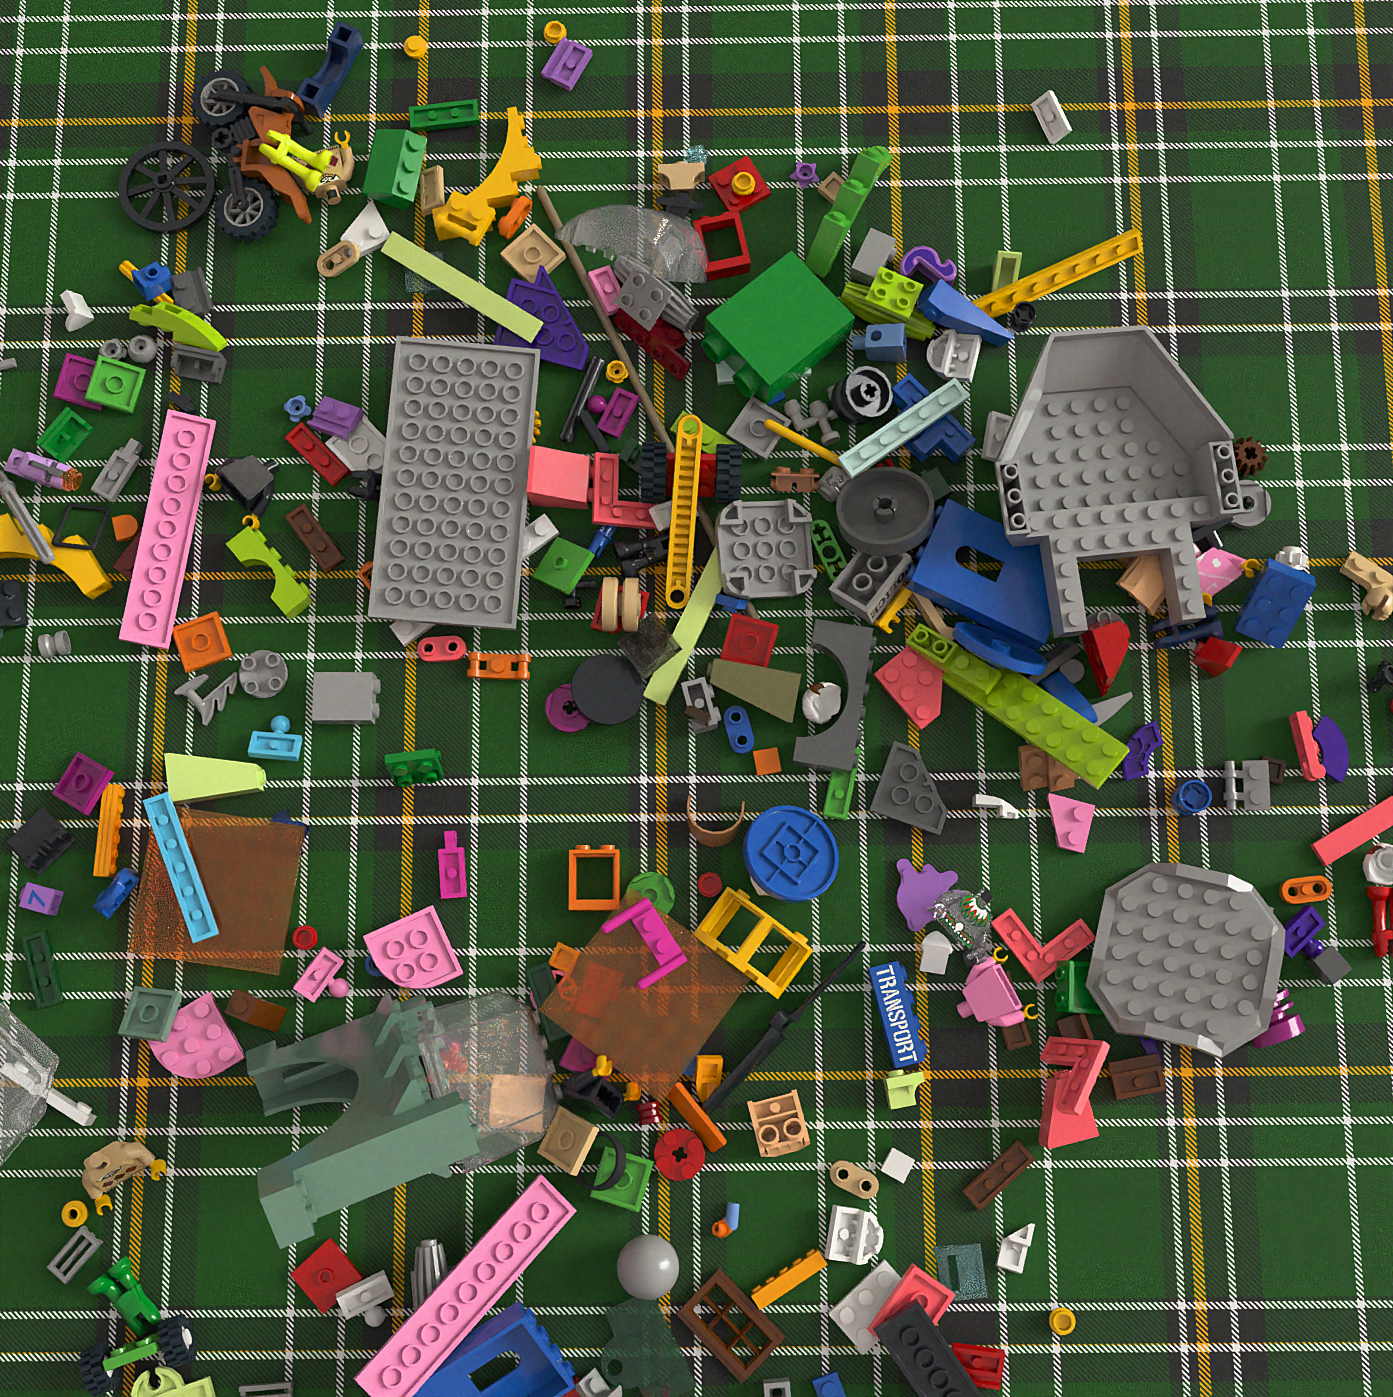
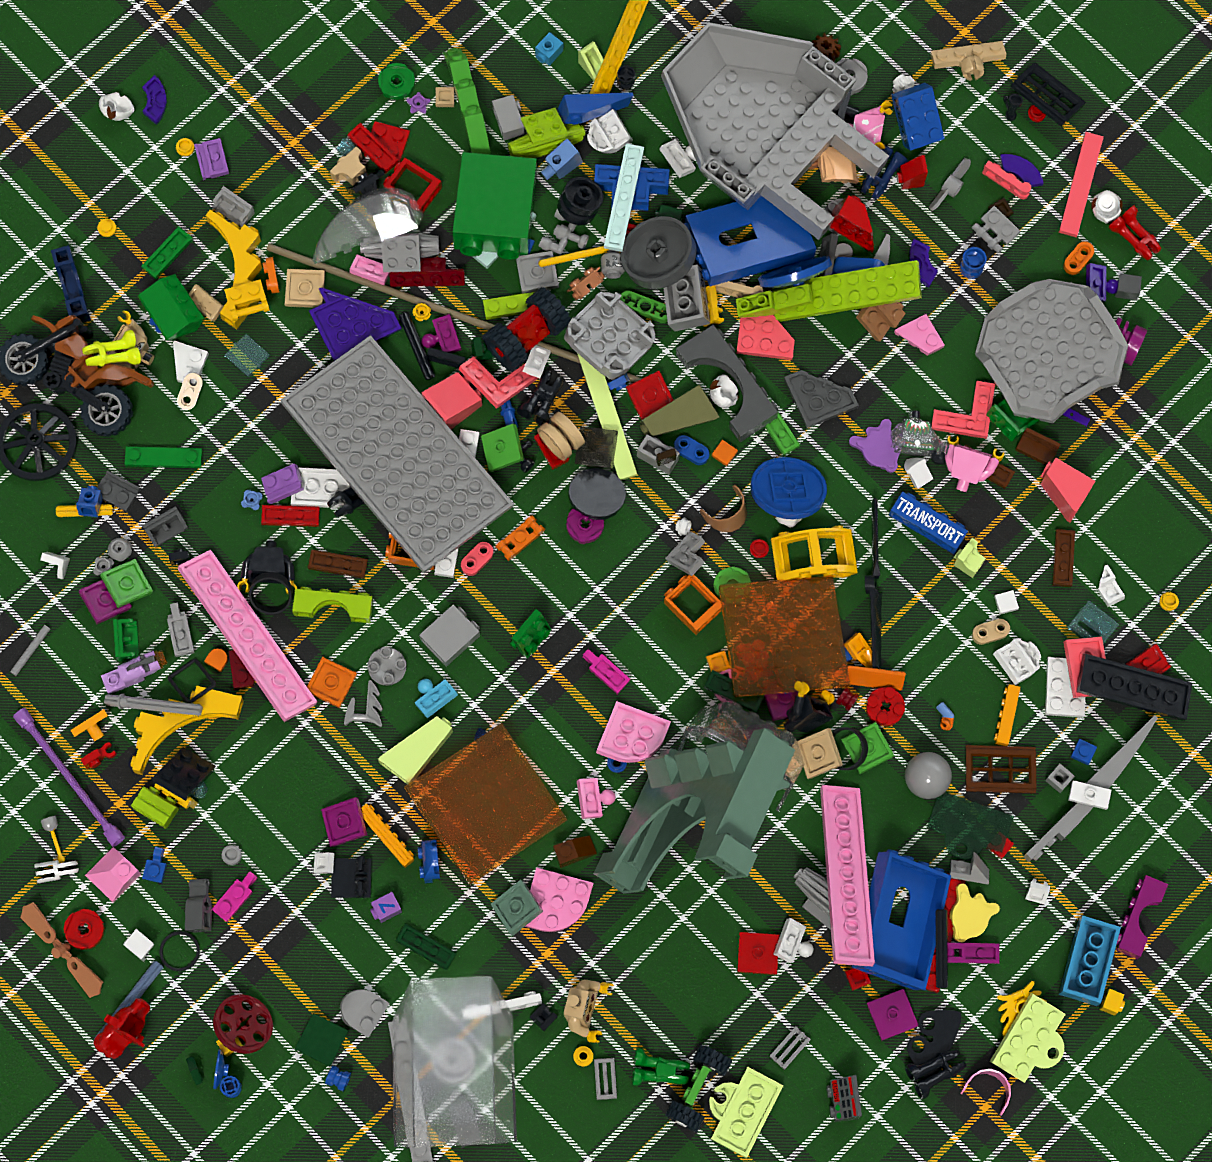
camera: 50 degrees left, 5 degrees down
(29, 804) = (323, 863): none -> white plate
(53, 644) = (244, 763): light grey wheel -> none
(78, 1140) = (543, 1017): none -> black tile
(181, 867) = (456, 806): medium azure plate -> none
(185, 325) = (140, 510): lime slope -> none
(207, 513) = (273, 576): none -> black tyre
(260, 299) = (163, 457): none -> green plate
(305, 937) = (561, 787): red plate -> none
(462, 287) = (282, 342): yellowish green tile -> none
(542, 124) = (233, 207): none -> light grey hinge
(630, 822) = (684, 555): none -> light grey plate
(654, 935) = (759, 597): dark pink plate -> none
(658, 796) = (683, 526): none -> white plate
(683, 511) = (546, 352): yellow gear -> none
(718, 178) = (372, 148): none -> red tile
(743, 184) = (391, 139): yellow plate -> none
(779, 1125) = (924, 639): light nougat slope -> none
(803, 148) = (399, 91): none -> green plate
(928, 263) = (544, 94): medium lavender animal -> none
(975, 226) = (548, 49): none -> dark azure brick
(1004, 809) = (876, 359): white slope -> none
(1086, 1058) = (1052, 448): coral plate -> none
(1136, 1076) = (1085, 438): reddish brown plate -> none
(1246, 701) = (952, 184): none -> light grey piece

